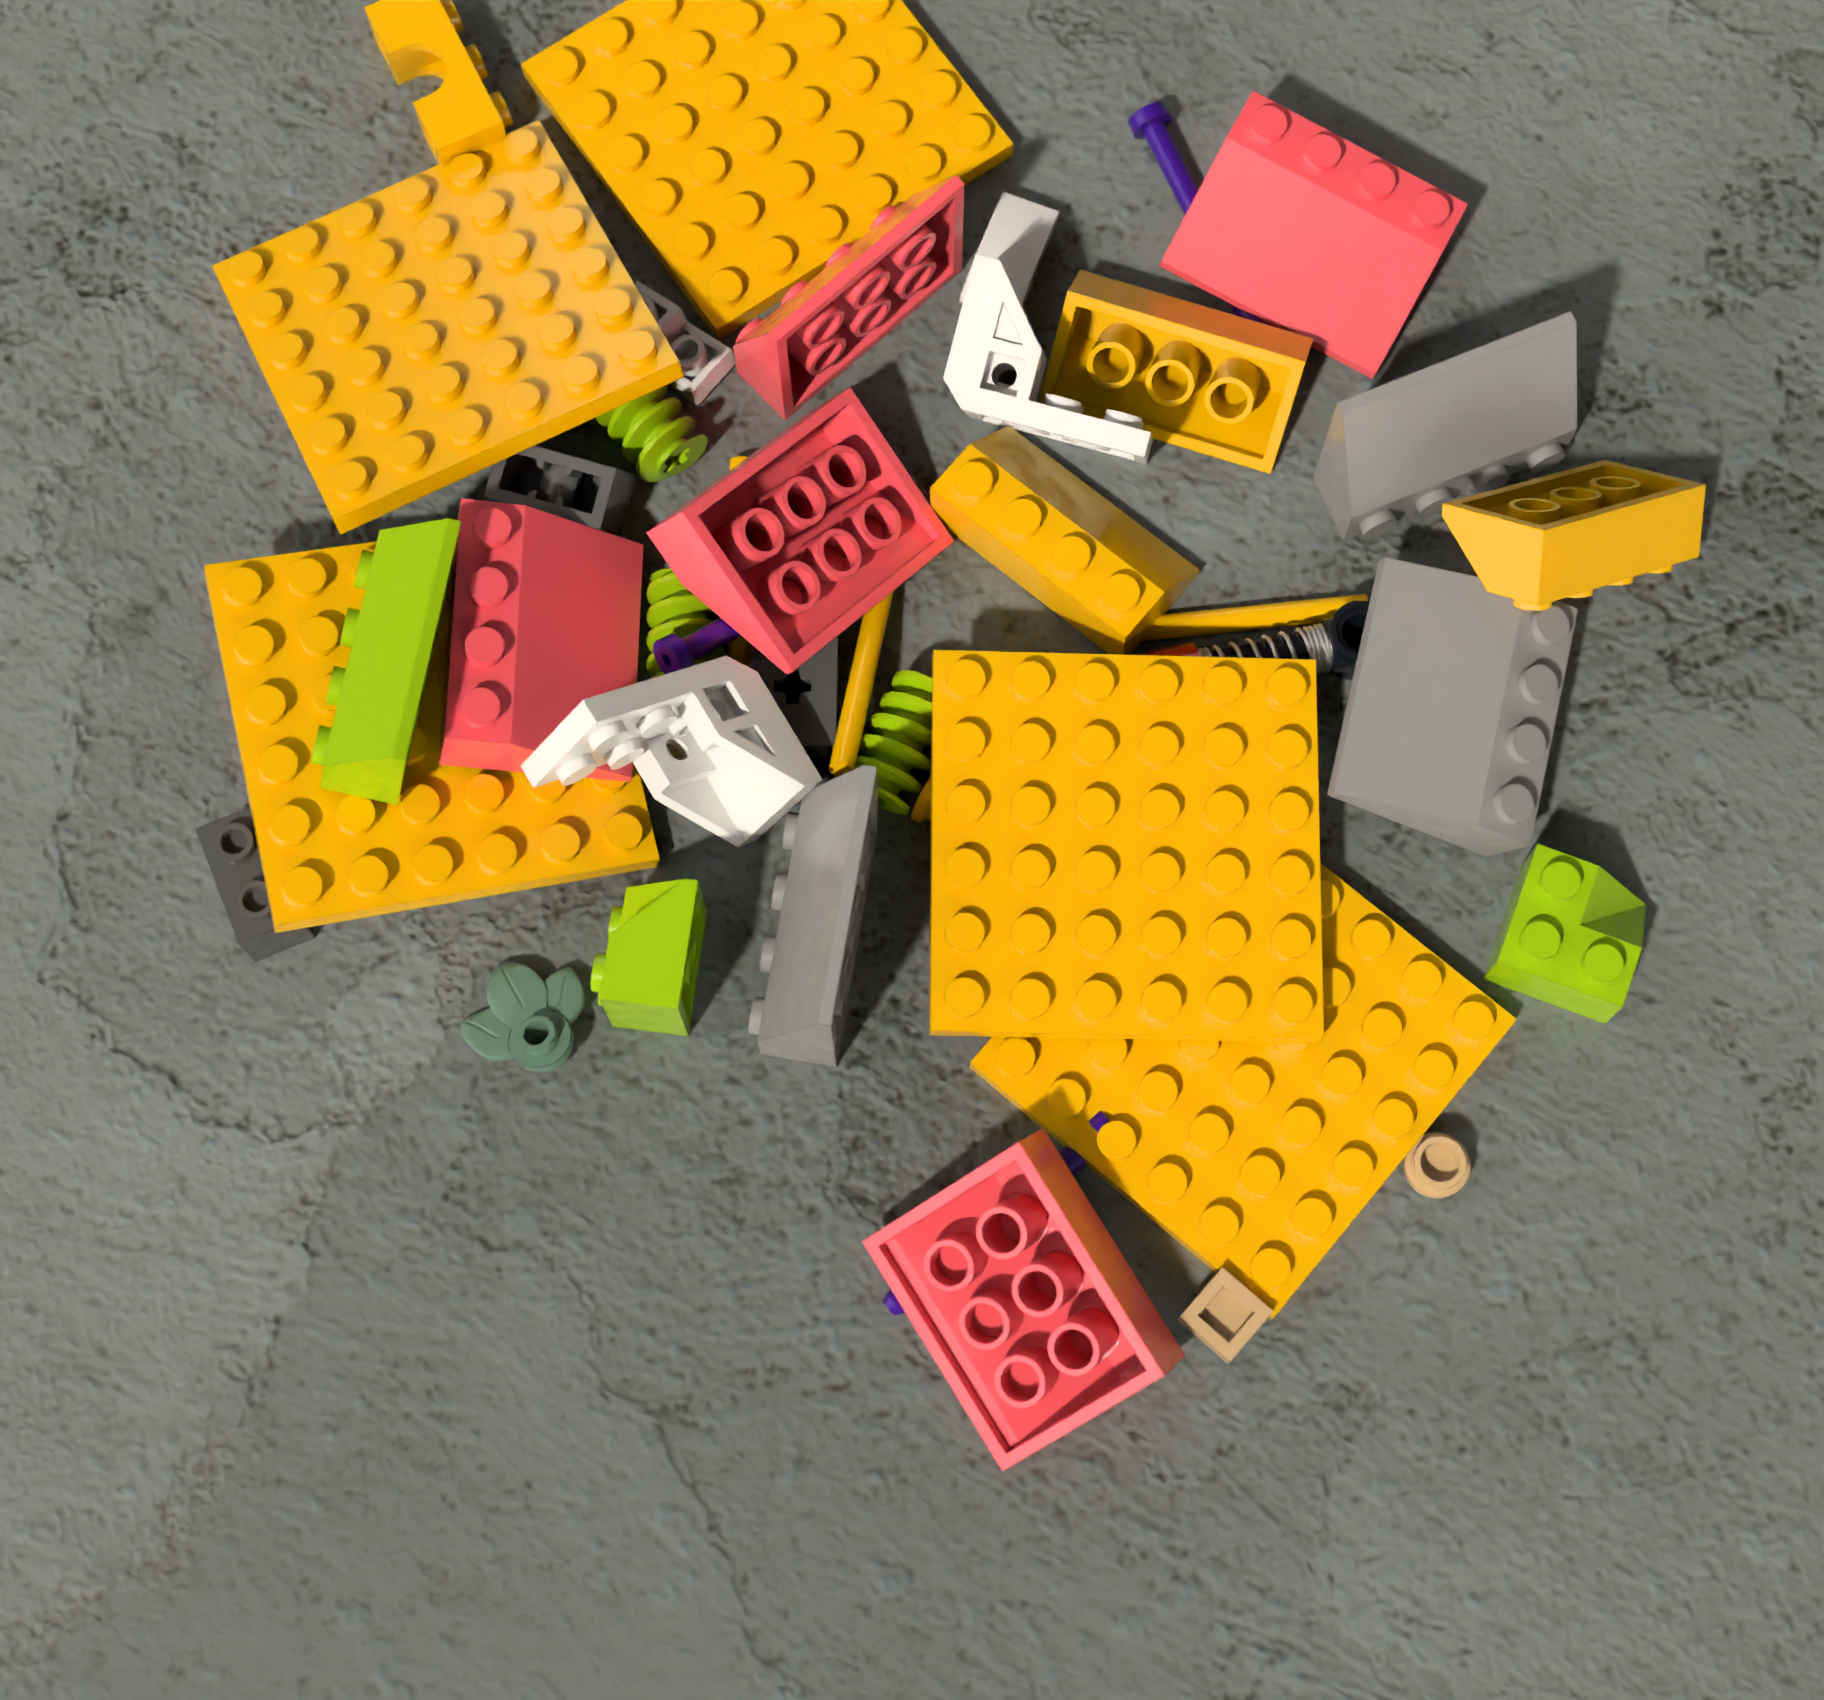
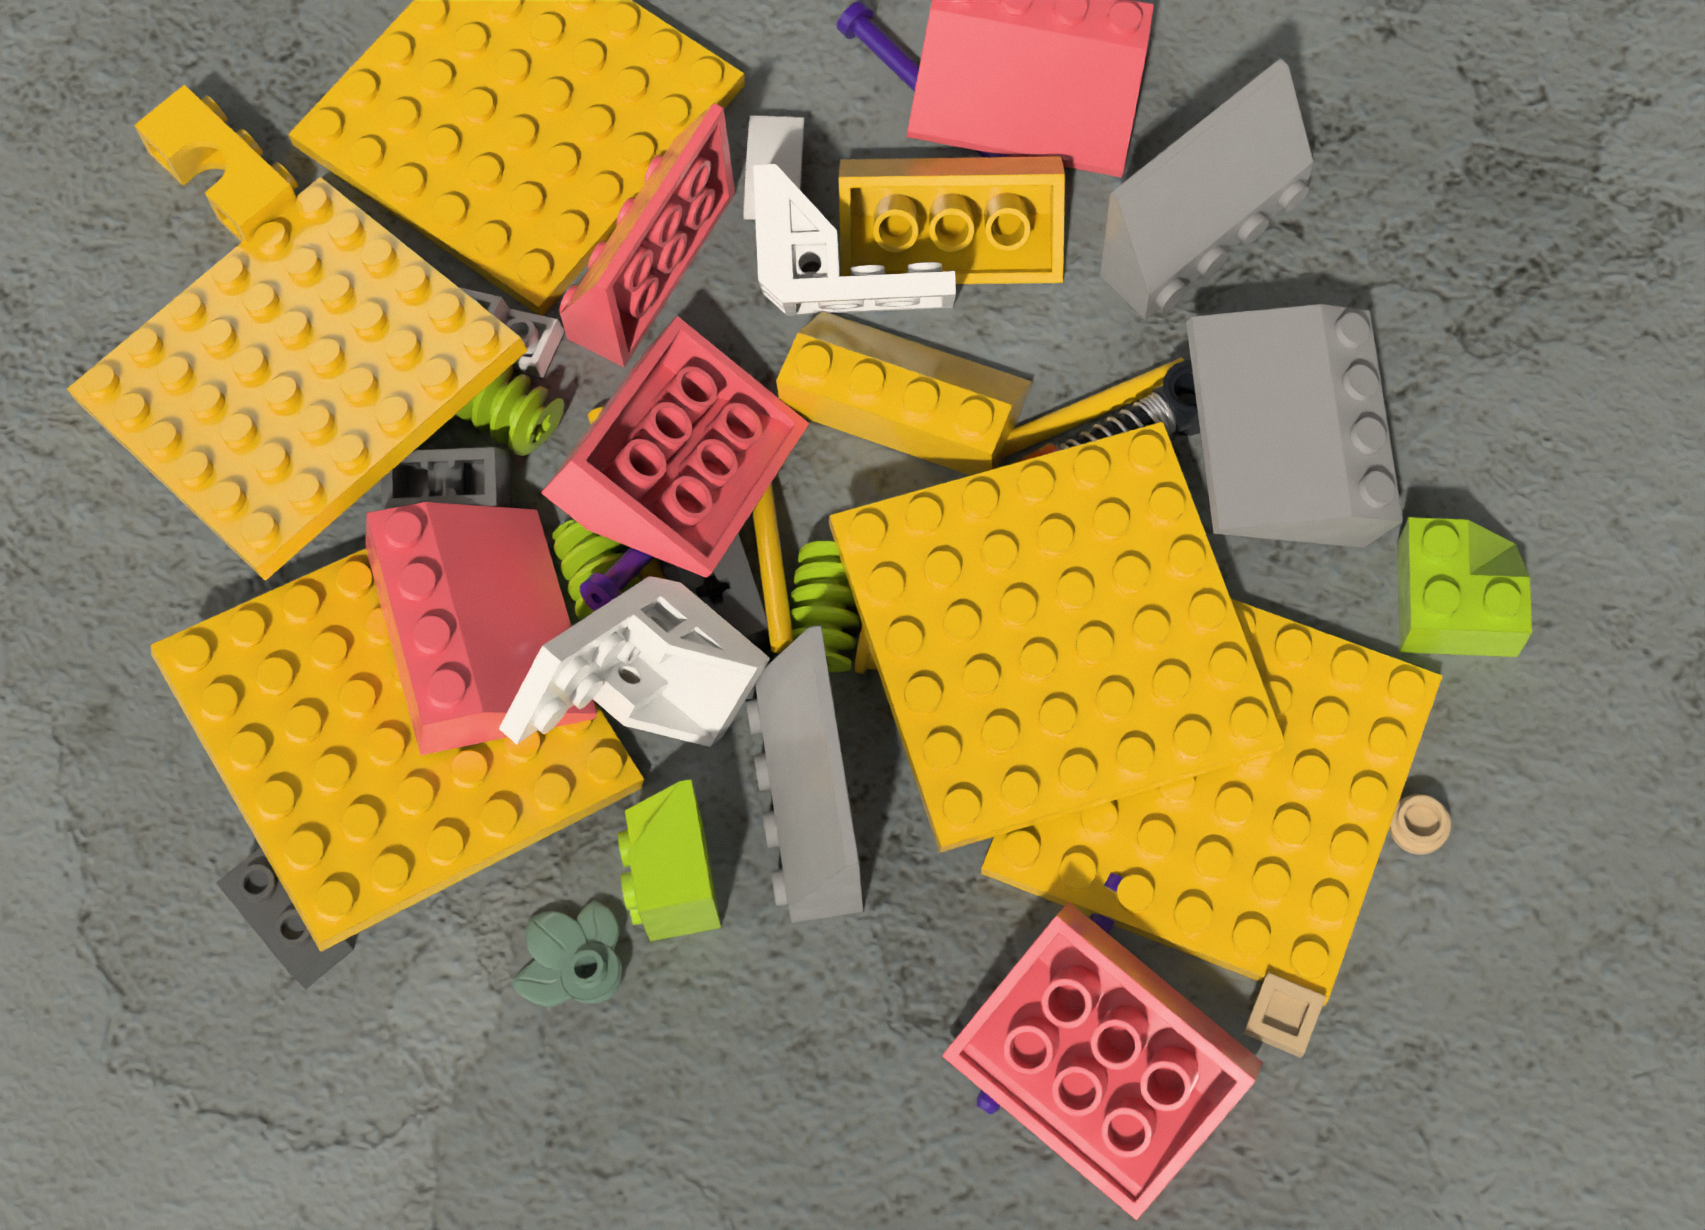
camera: 15 degrees left, 5 degrees down
(388, 660) = (348, 675): lime slope -> none
(1577, 531) = (1346, 245): yellow slope -> none

